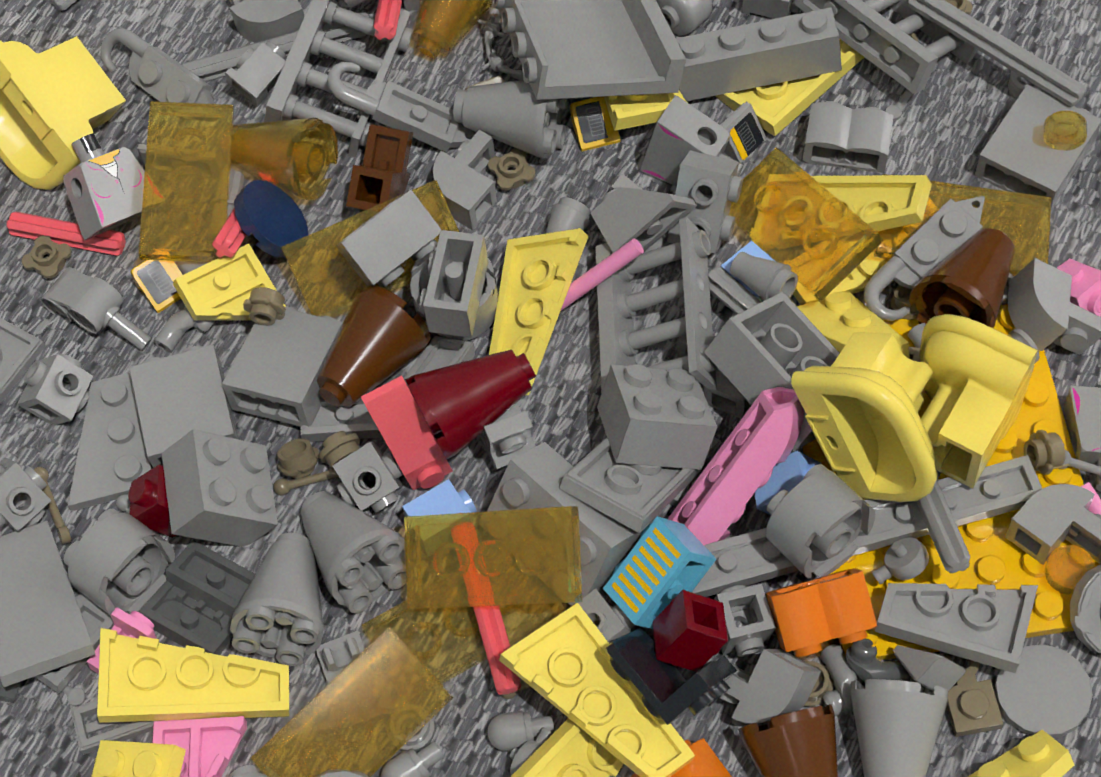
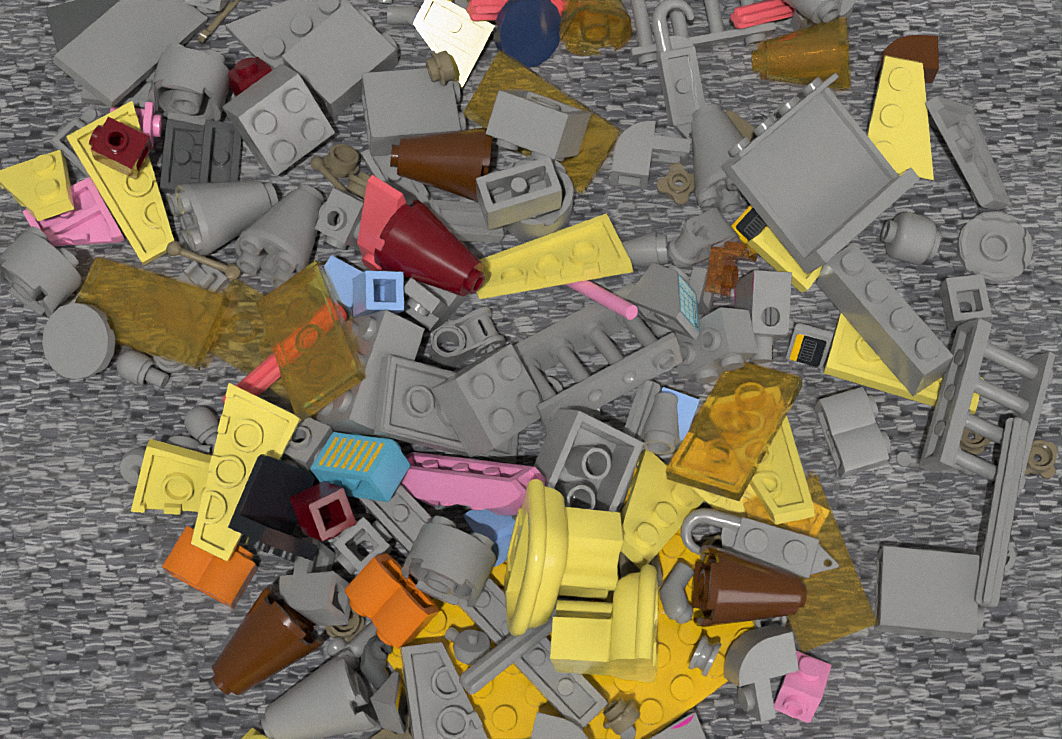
camera: 55 degrees right, 10 degrees up
(151, 658) = (120, 147): none -> dark red brick
(352, 623) = (231, 270): none -> dark tan hinge
(383, 168) = (615, 90): reddish brown brick -> none
(479, 470) = (378, 292): none -> light blue brick
(565, 422) = (473, 336): none -> light grey piece
(583, 170) = (698, 237): none -> light grey piece
(631, 166) = (722, 271): none -> clear orange bracket
(1065, 130) = (938, 605): clear yellow tile -> none

